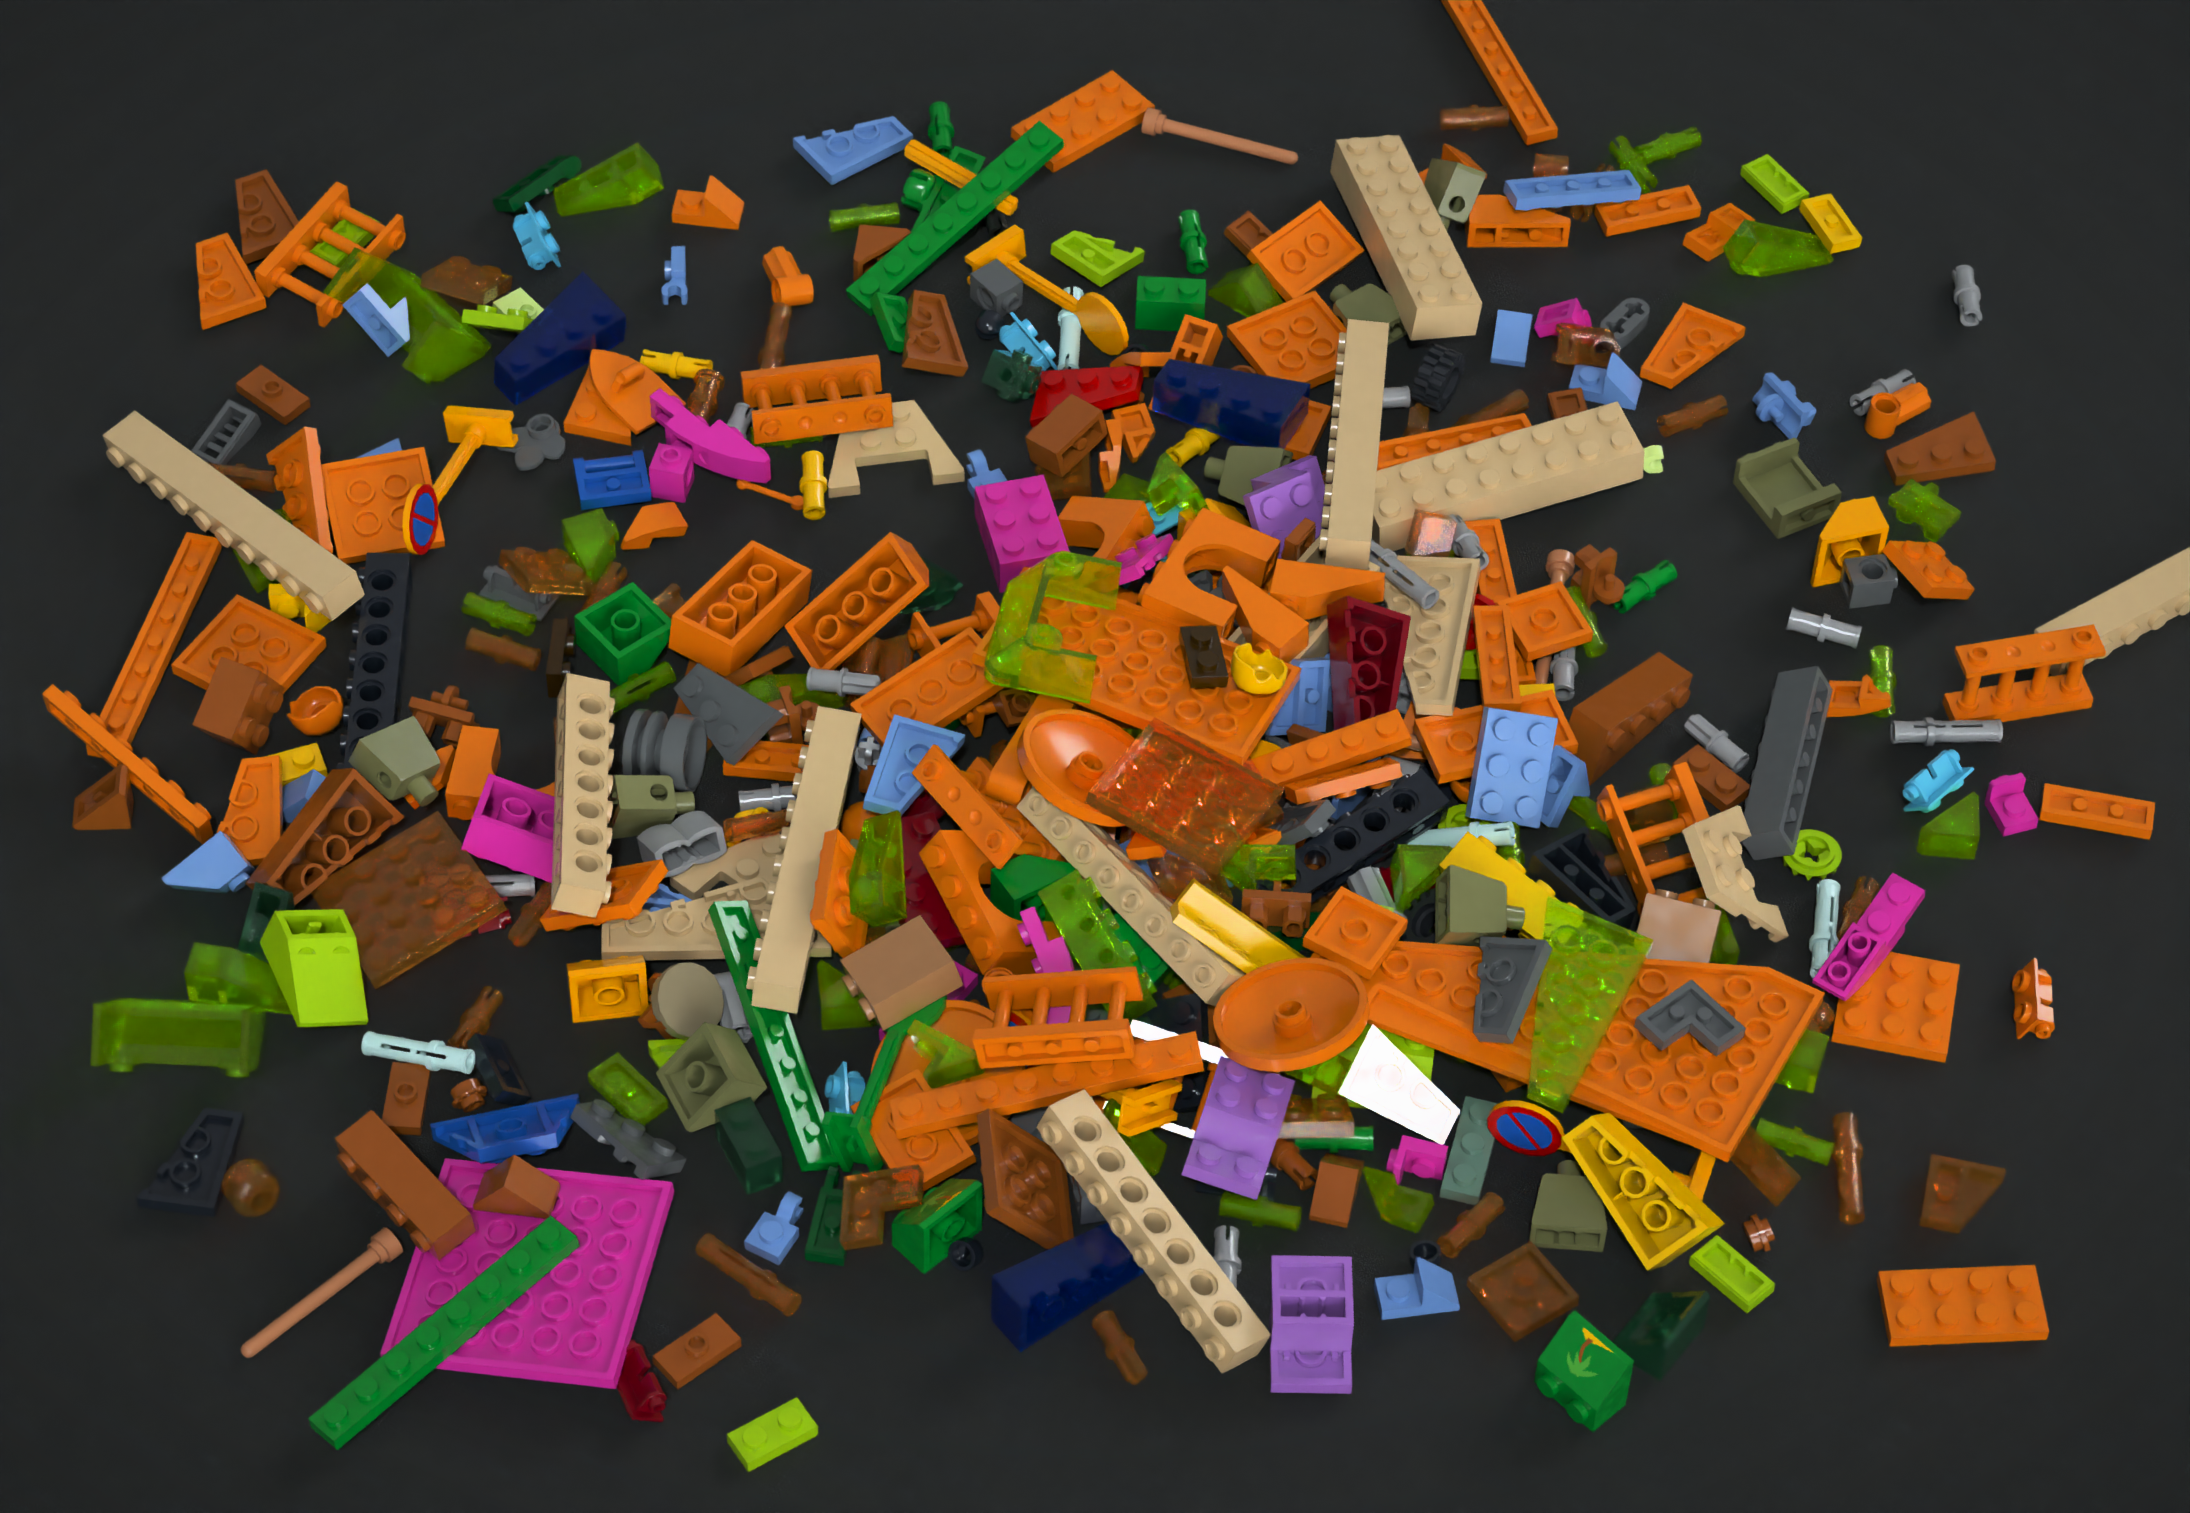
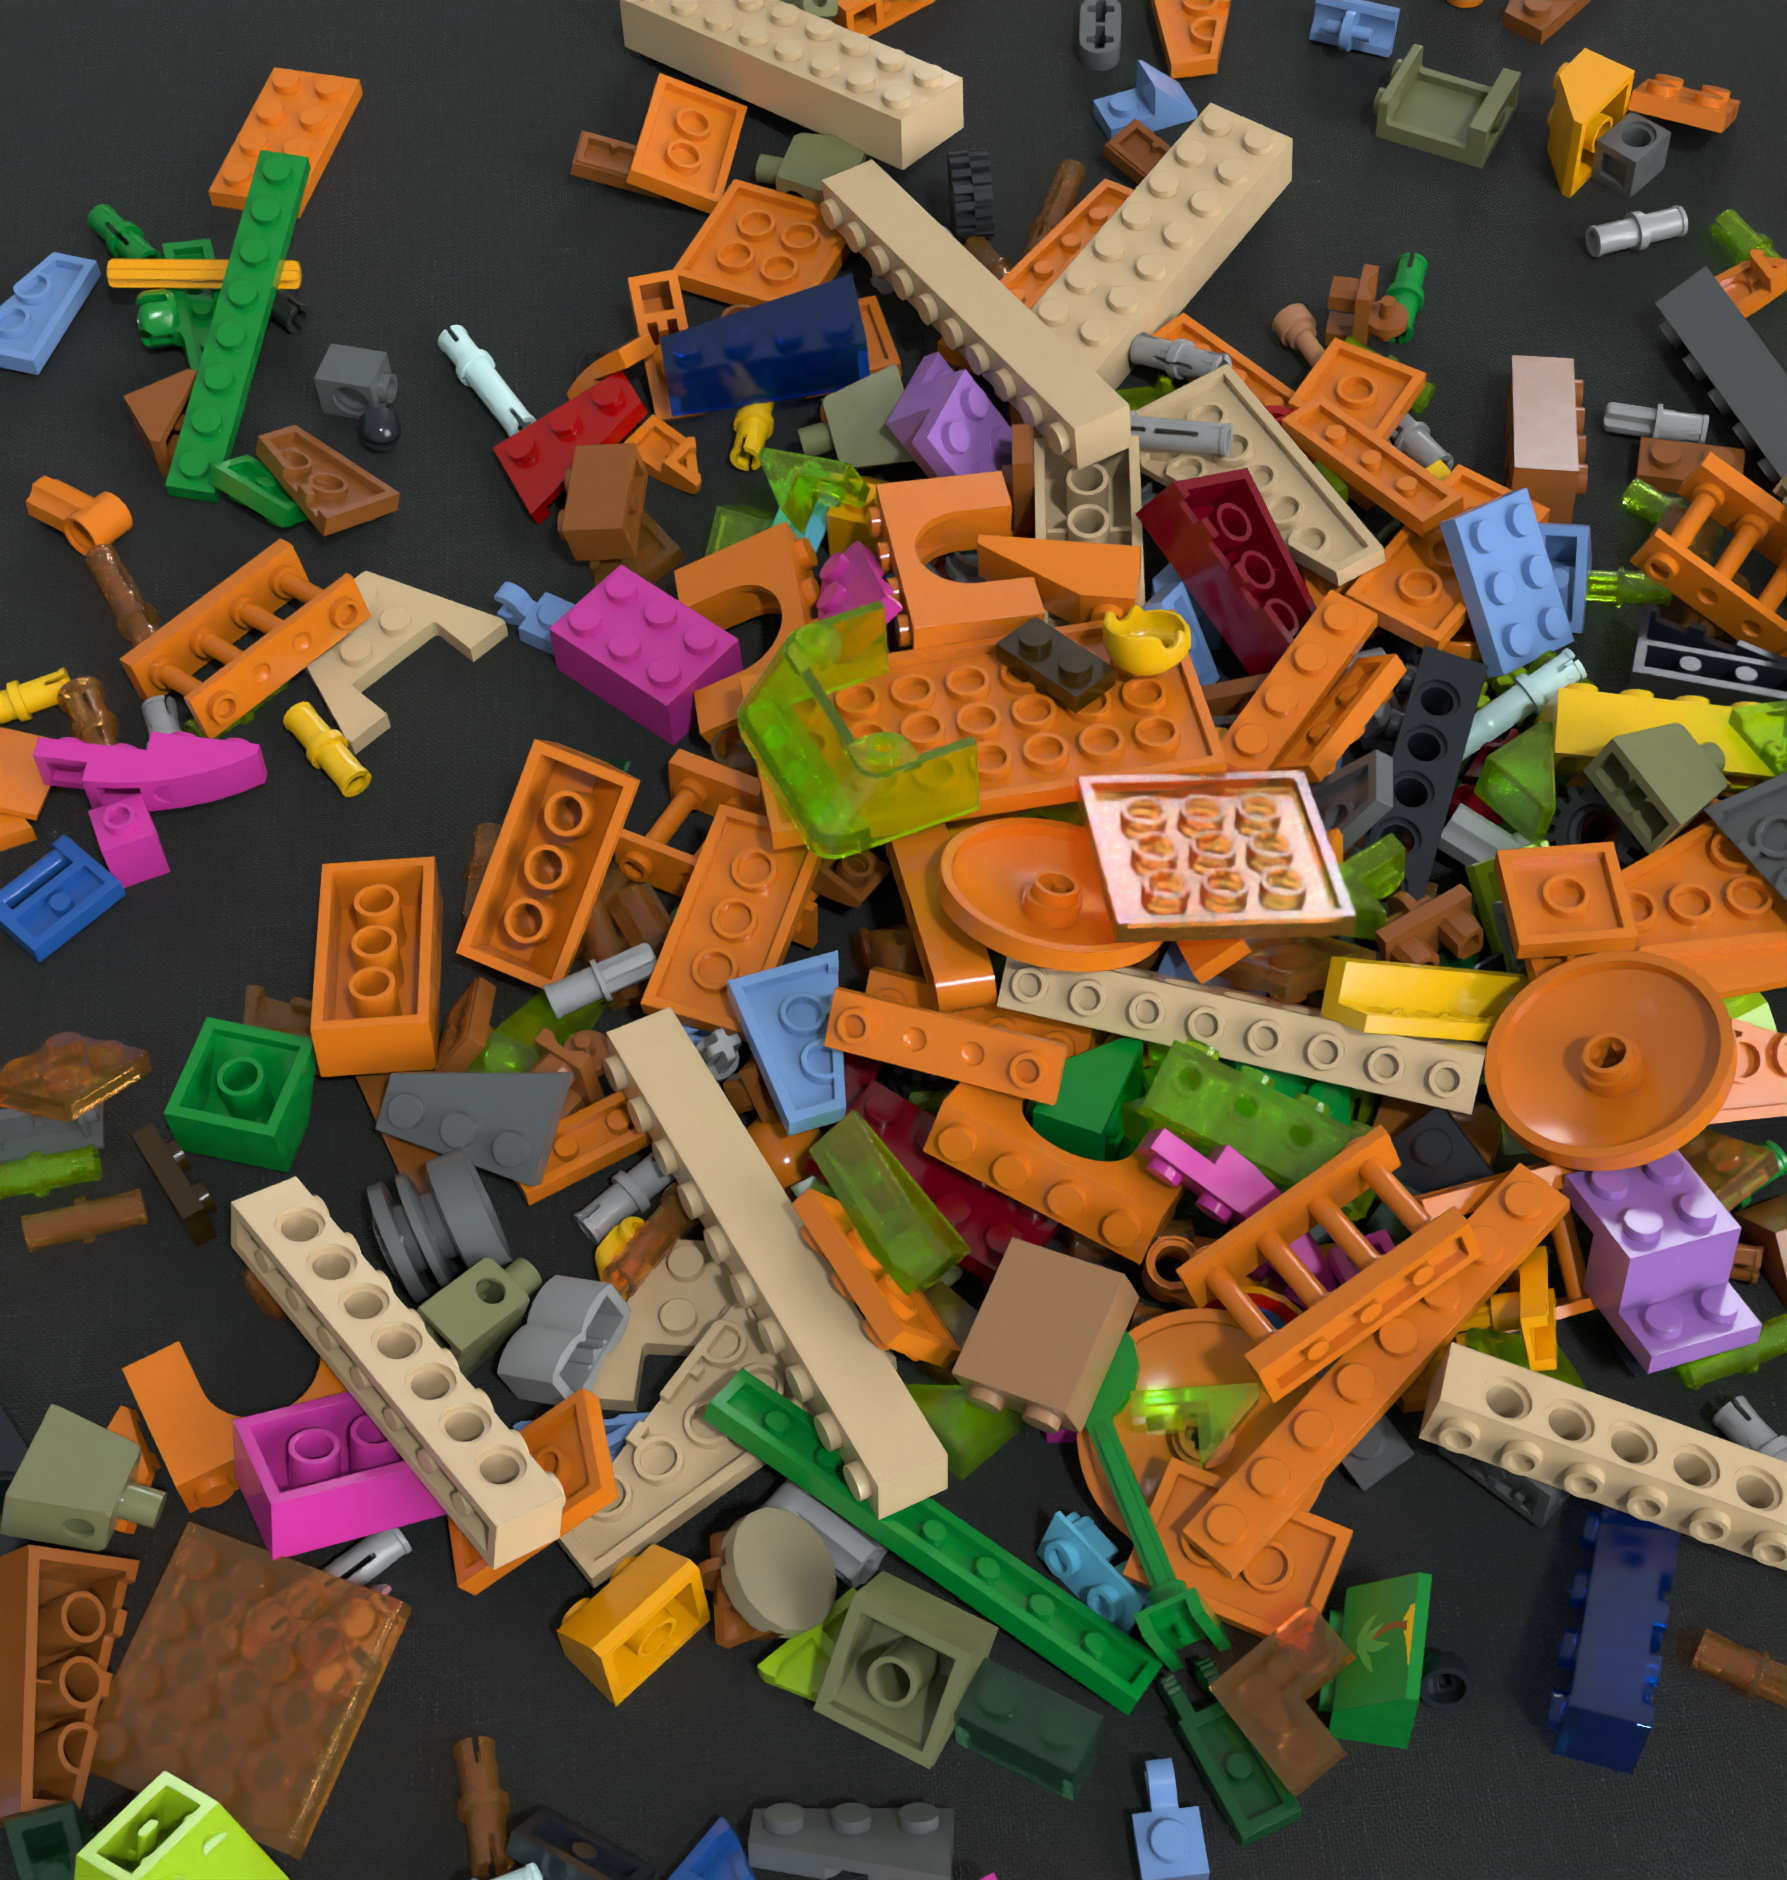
camera: 30 degrees left, 5 degrees up
(445, 711) = (102, 1366): dark orange hips -> none
(531, 912) = (437, 1582): clear orange axle -> none
(590, 541) = (90, 997): clear neon green slope -> none
(607, 584) = (166, 1056): clear orange pin -> none
(627, 1090) = (787, 1761): clear neon green plate -> none
(654, 522) = (155, 921): orange slope -> none
(658, 677) = (318, 1152): clear neon green pin -> none
(795, 501) = (319, 784): orange hinge -> none
(864, 215) = (111, 387): clear neon green pin -> none
(1012, 374) = (450, 475): clear green brick -> none
(1022, 336) = (435, 418): medium azure hinge -> none
(1023, 1181) = (1455, 1528): dark orange plate -> none
(1095, 256) = (438, 282): lime wing -> none
(1095, 313) = (515, 340): light orange piece -> none
(1110, 460) = (672, 501): orange slope -> none
(1156, 122) = (379, 96): nougat piece -> none
(1166, 300) = (577, 284): green slope -> none
(1193, 241) = (540, 203): green pin -> none
(1246, 291) = (652, 224): clear neon green slope -> none
(1311, 586) = (1103, 499): orange slope -> none
(1430, 534) = (1142, 369): clear orange brick -> none
(1511, 338) = (997, 111): medium blue slope -> none
(1562, 312) = (1034, 60): dark pink bracket -> none
(1582, 345) = (1085, 74): clear orange piece -> none
(1692, 415) = (1270, 85): clear orange pin -> none
(1925, 508) = (1615, 39): clear neon green hips -> none

